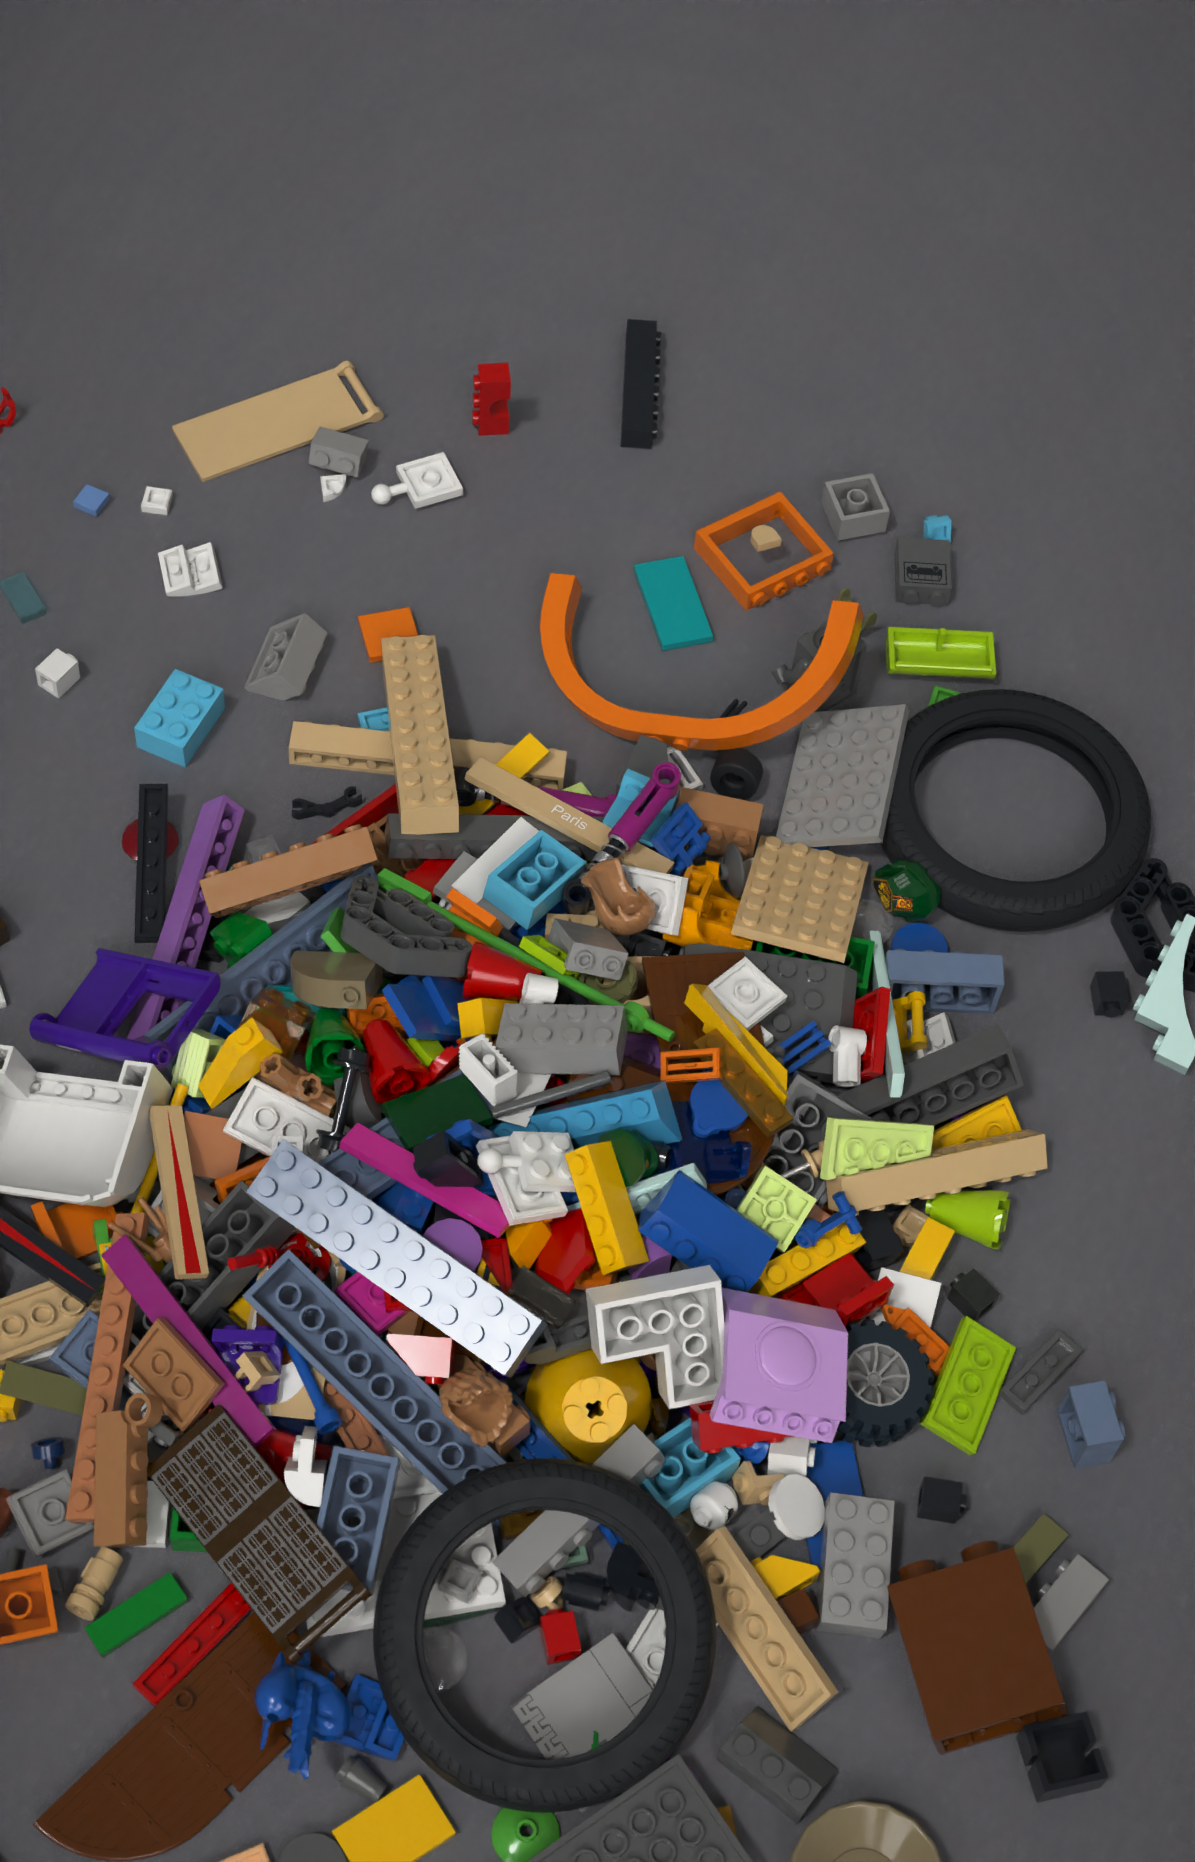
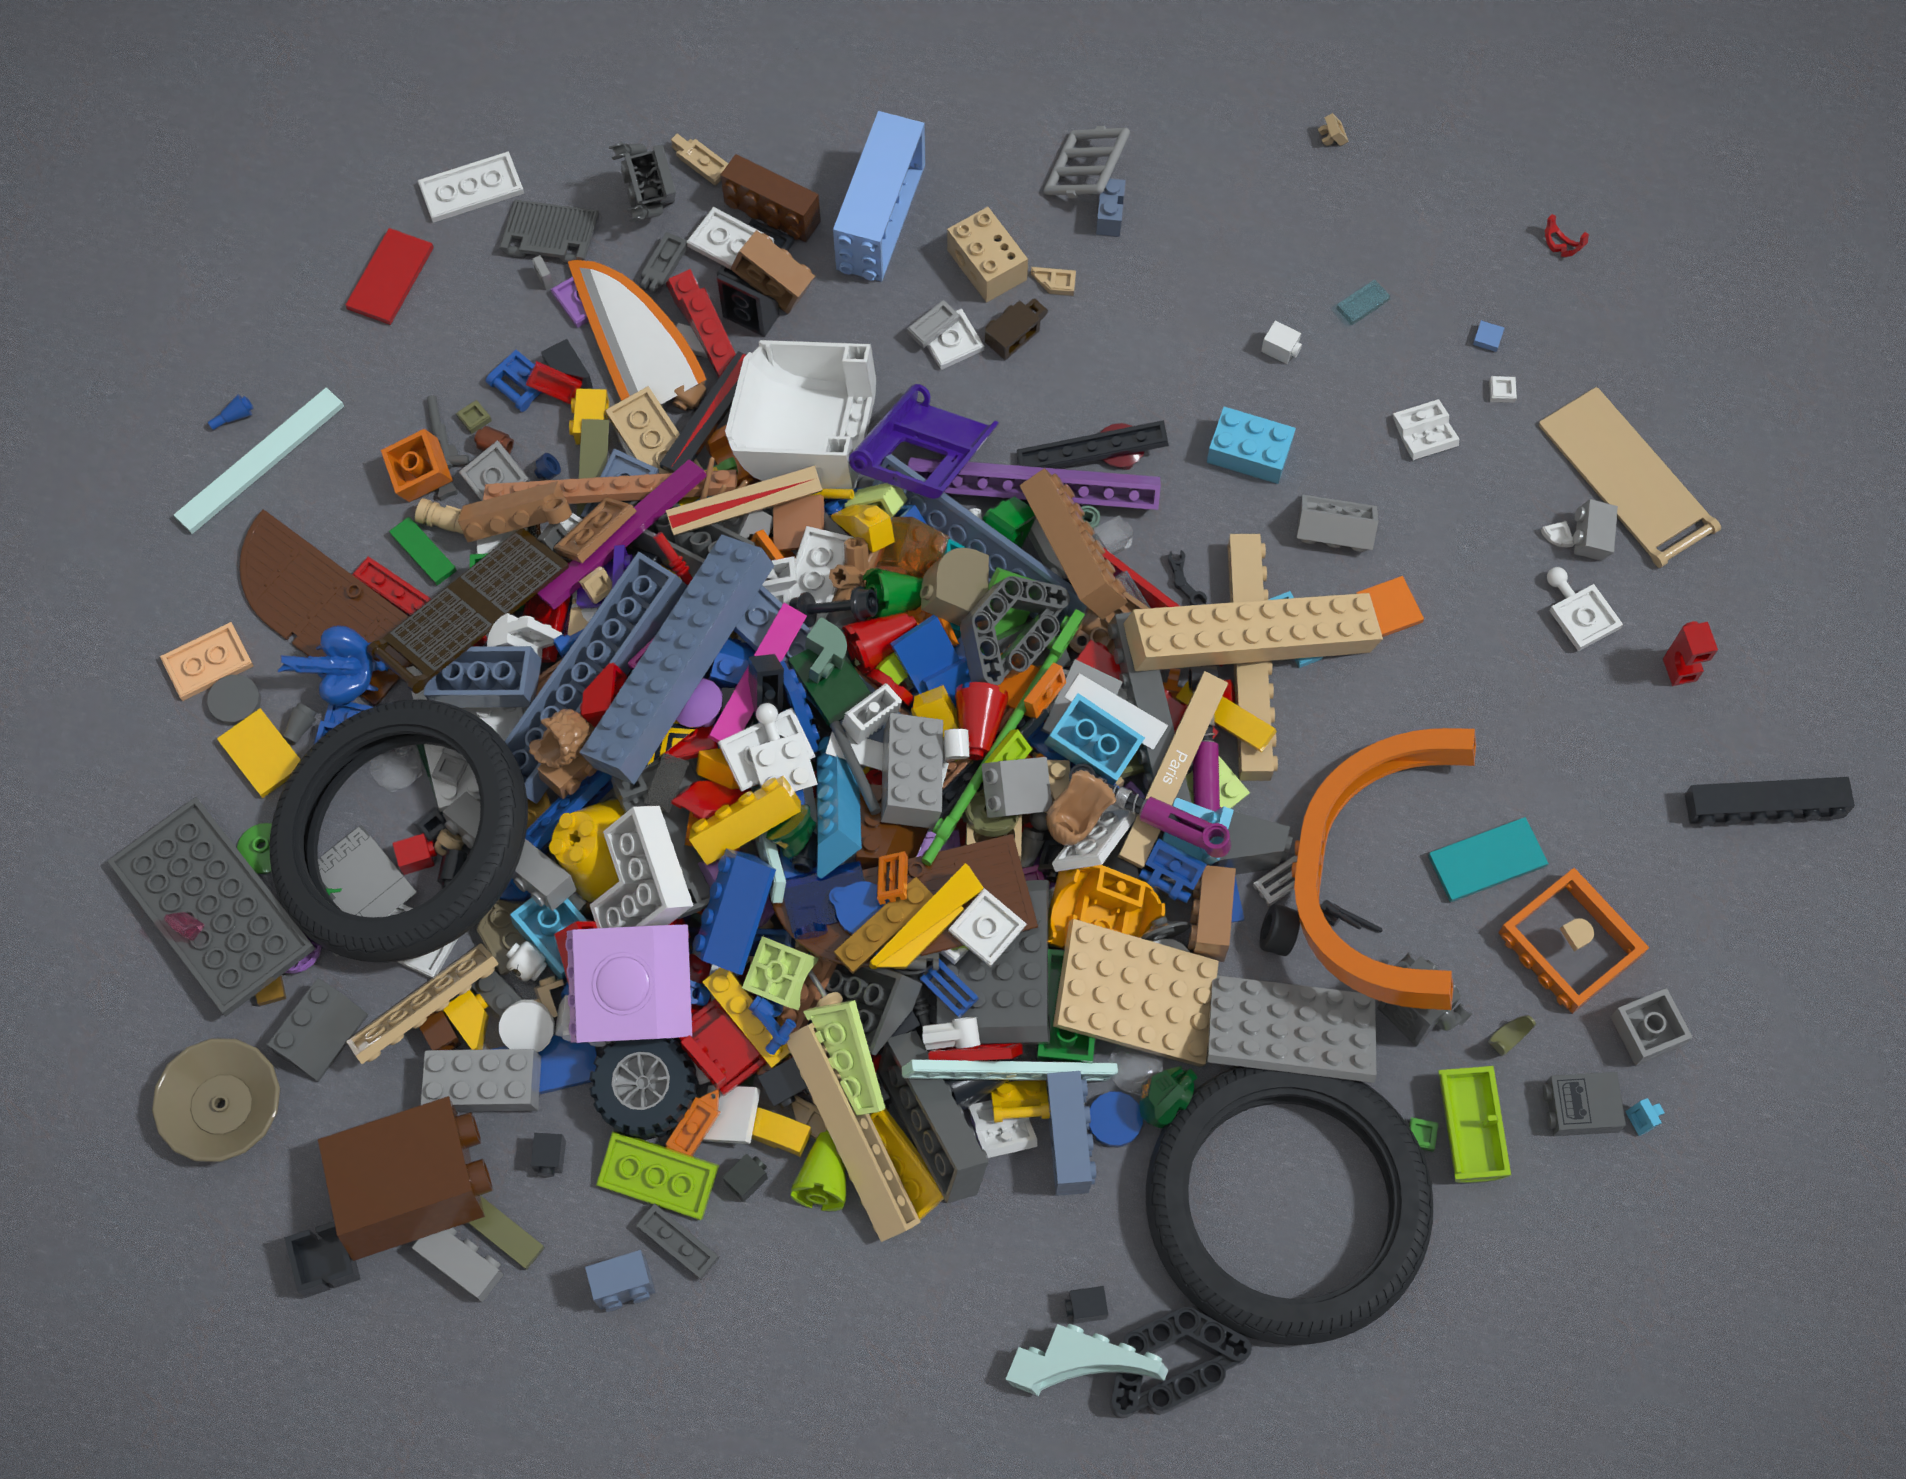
camera: 90 degrees right, 10 degrees up
(403, 1099) = (830, 645): none -> sand green brick

